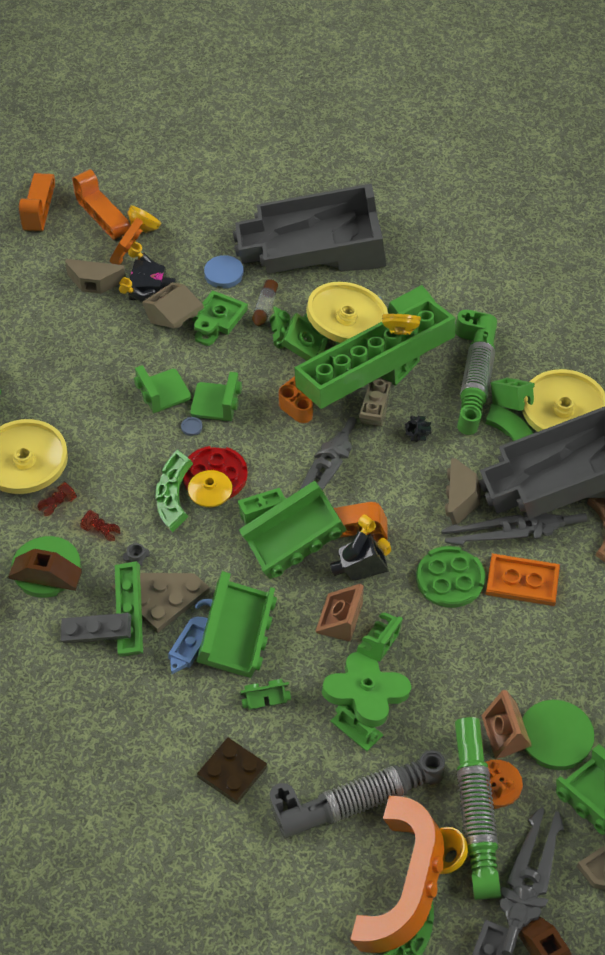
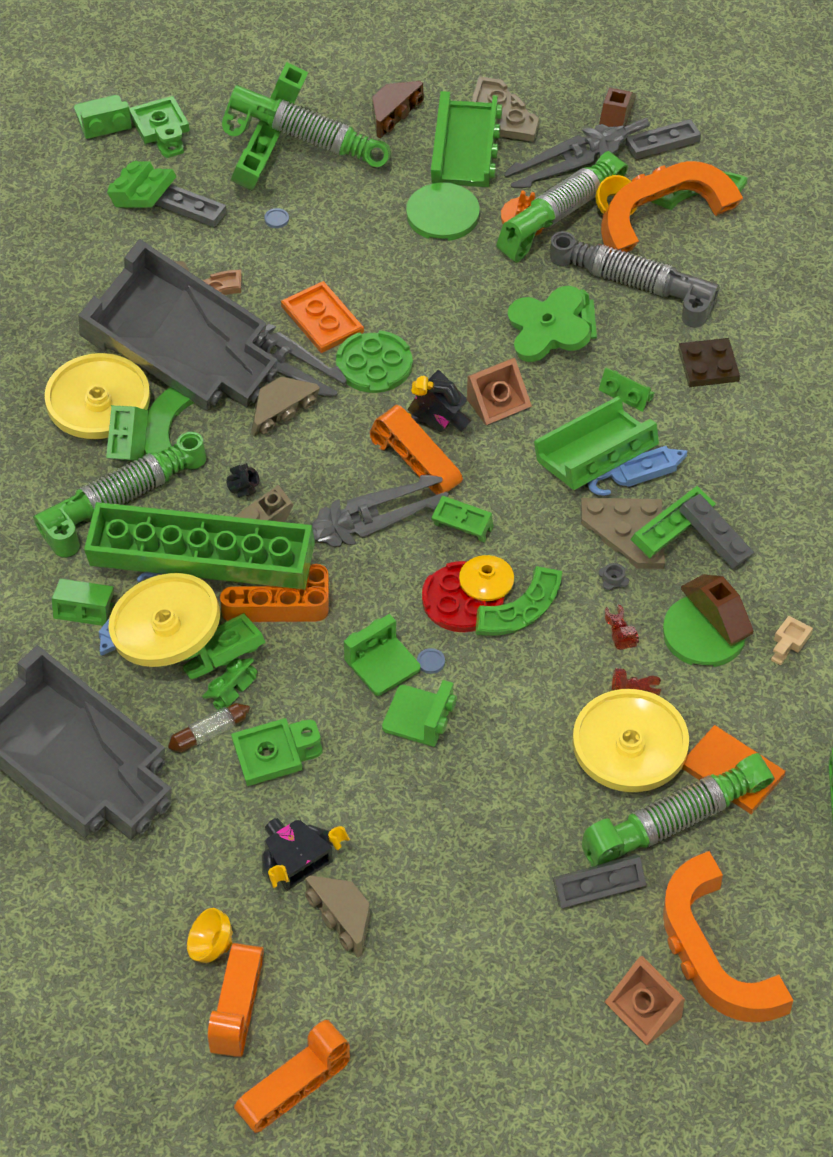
camera: 135 degrees left, 0 degrees up
(125, 244) = (263, 907): orange plate -> none
(172, 306) = (312, 781): dark tan slope -> none
(223, 271) = (201, 805): medium blue tile -> none
(293, 530) = (467, 465): bright green panel -> none
(380, 637) = (492, 347): bright green hinge -> none
(401, 323) = (153, 516): yellow piece -> none
(505, 726) = (478, 231): nougat slope -> none

